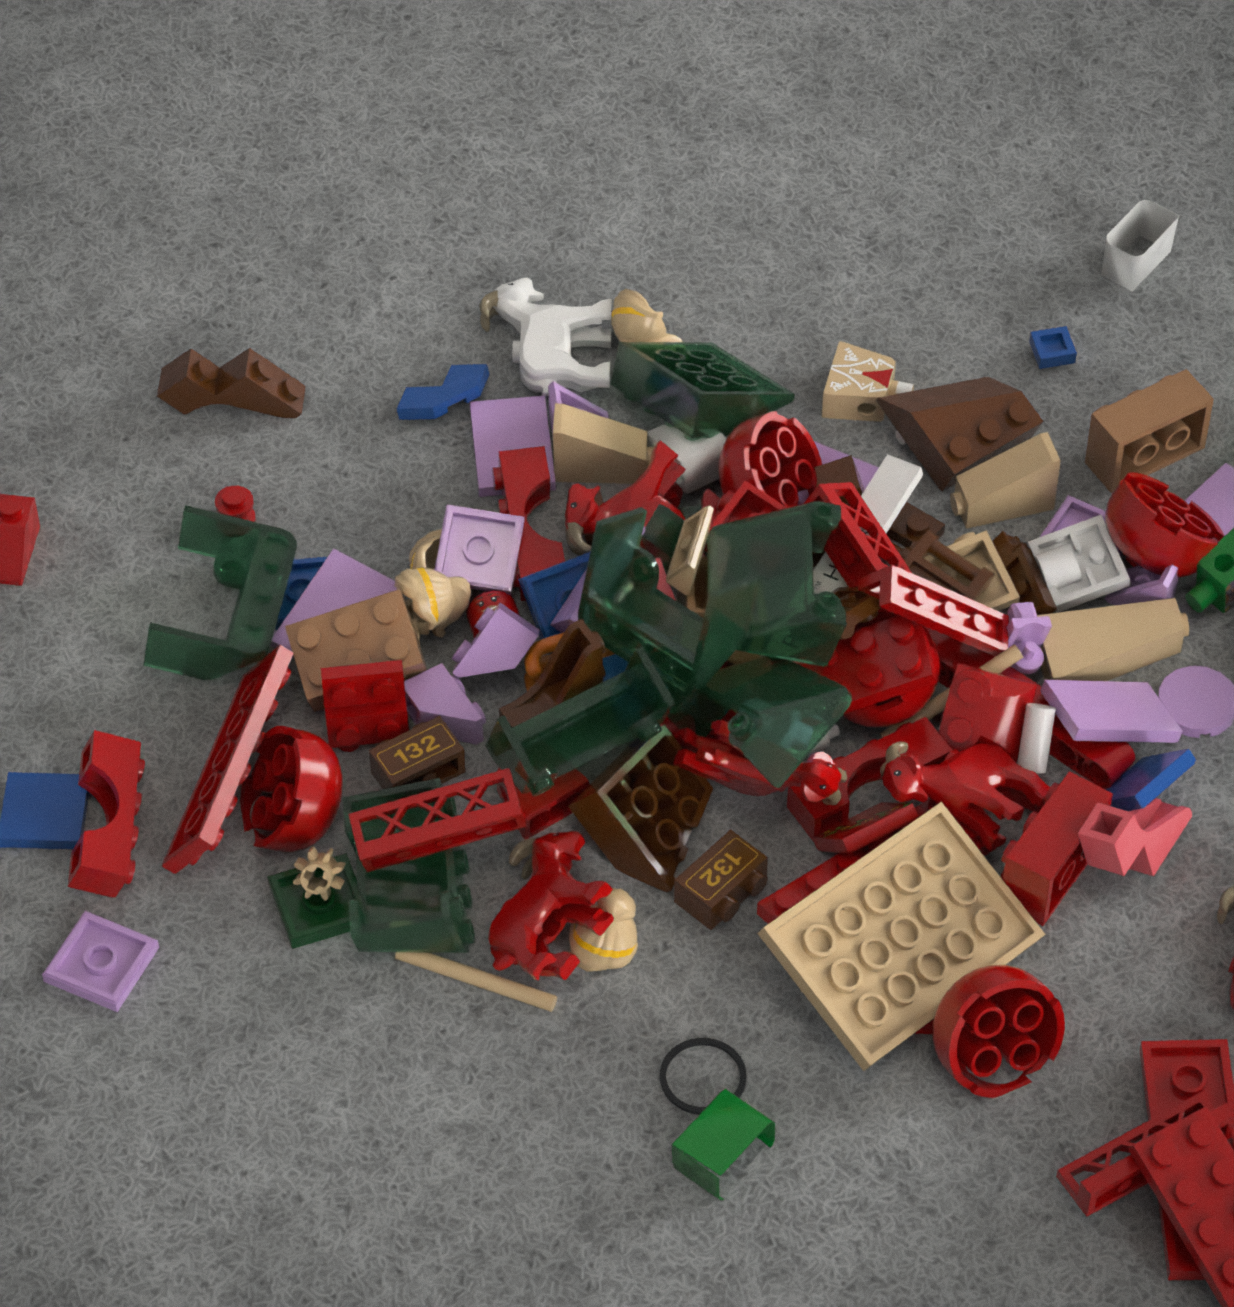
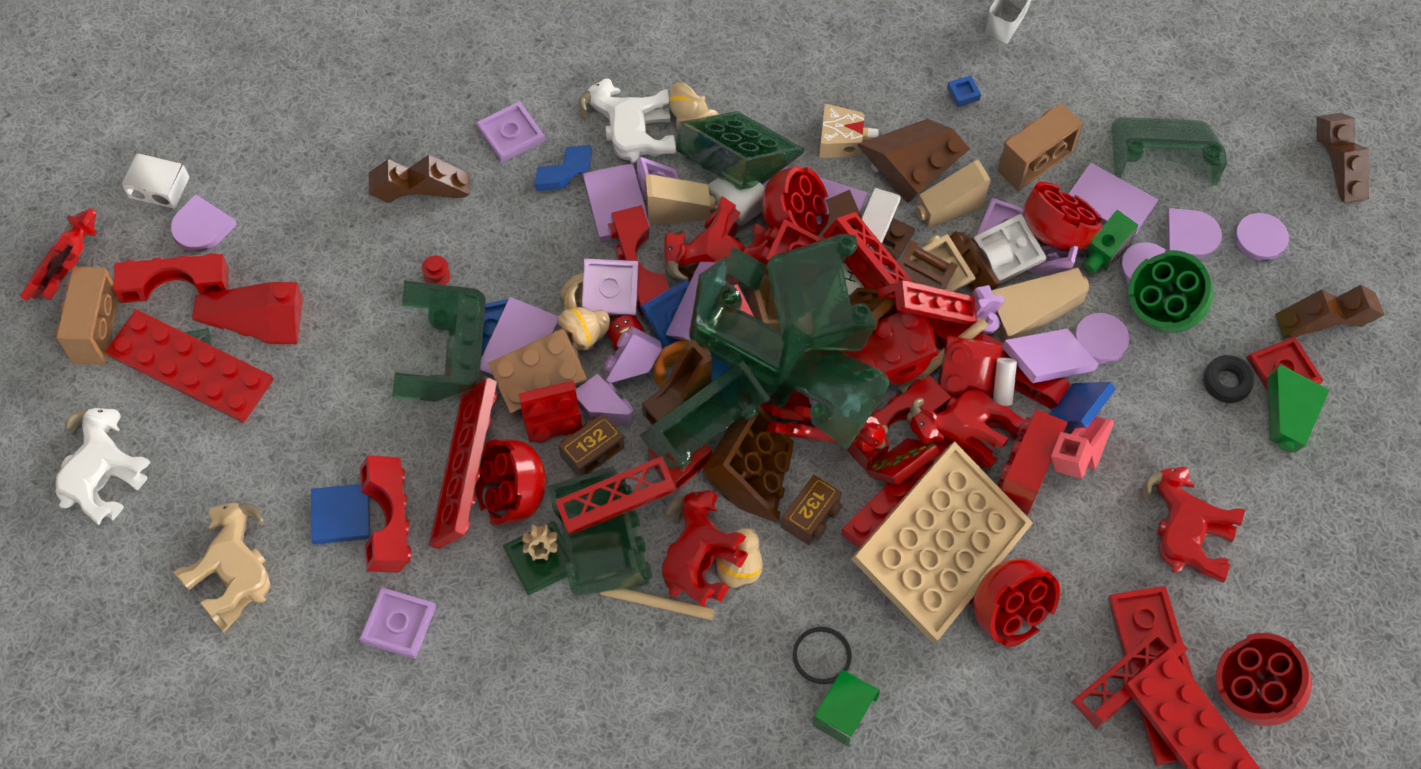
camera: 10 degrees left, 10 degrees up
(375, 337) = (510, 131): none -> lavender tile
(689, 550) = (758, 278): tan slope -> none

